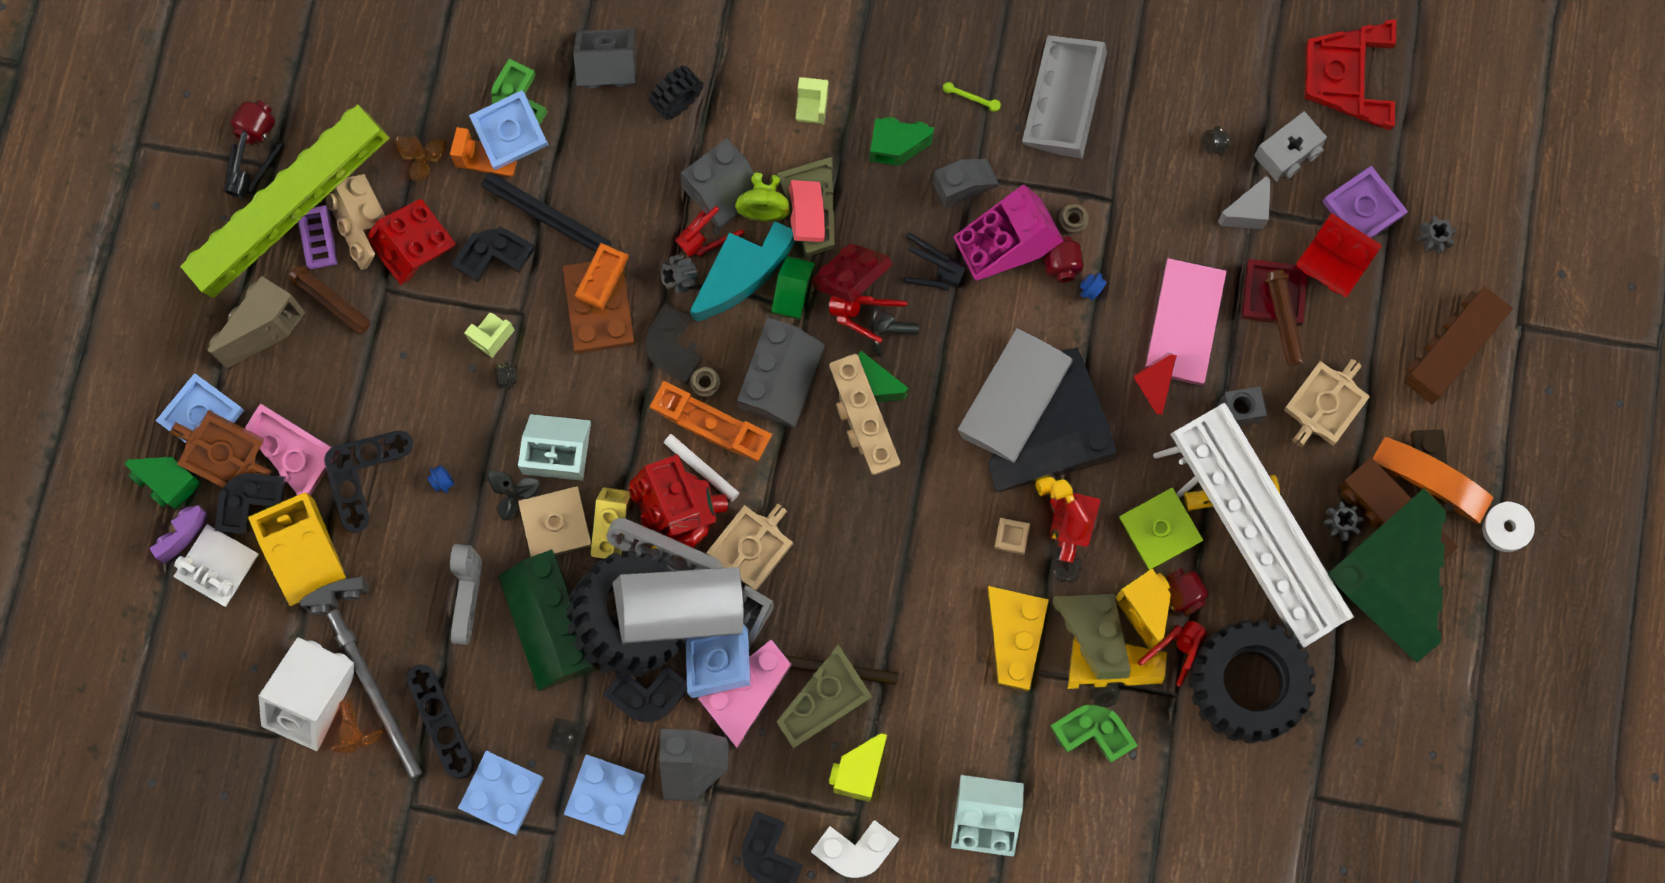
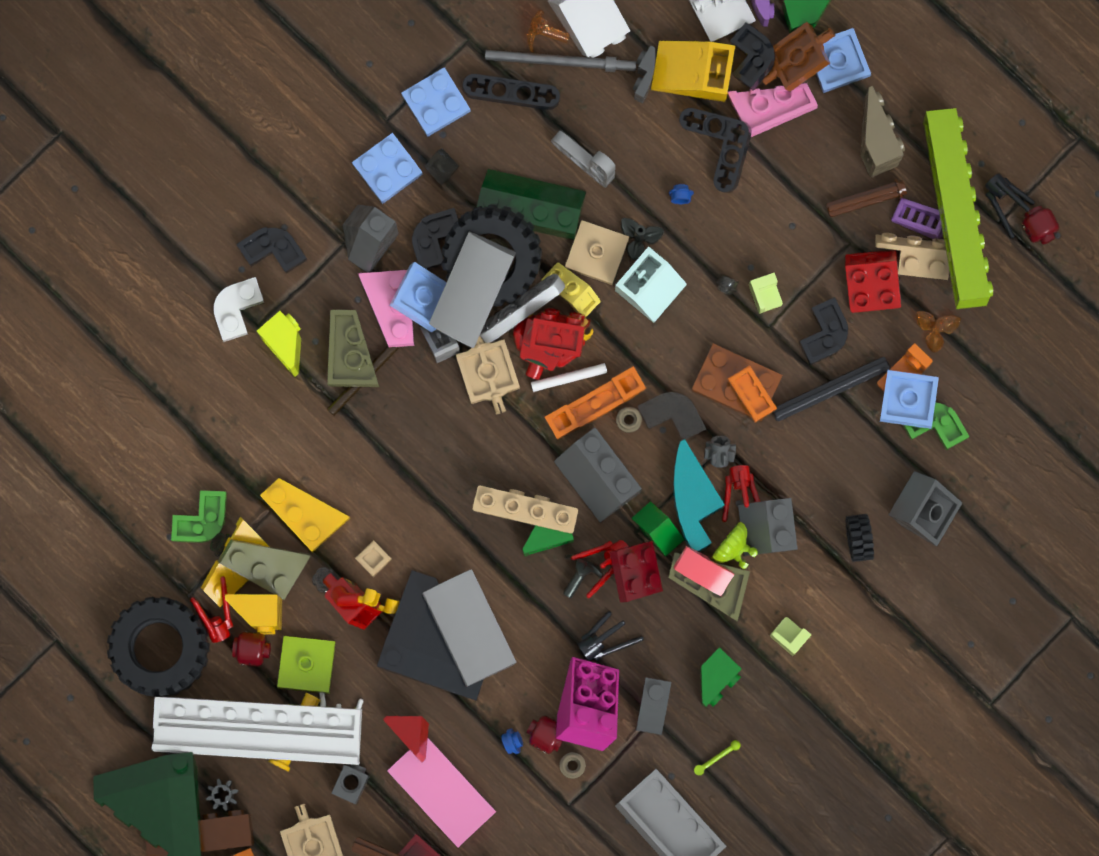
camera: 125 degrees right, 5 degrees up
(987, 815) = (197, 408): light aqua slope -> none

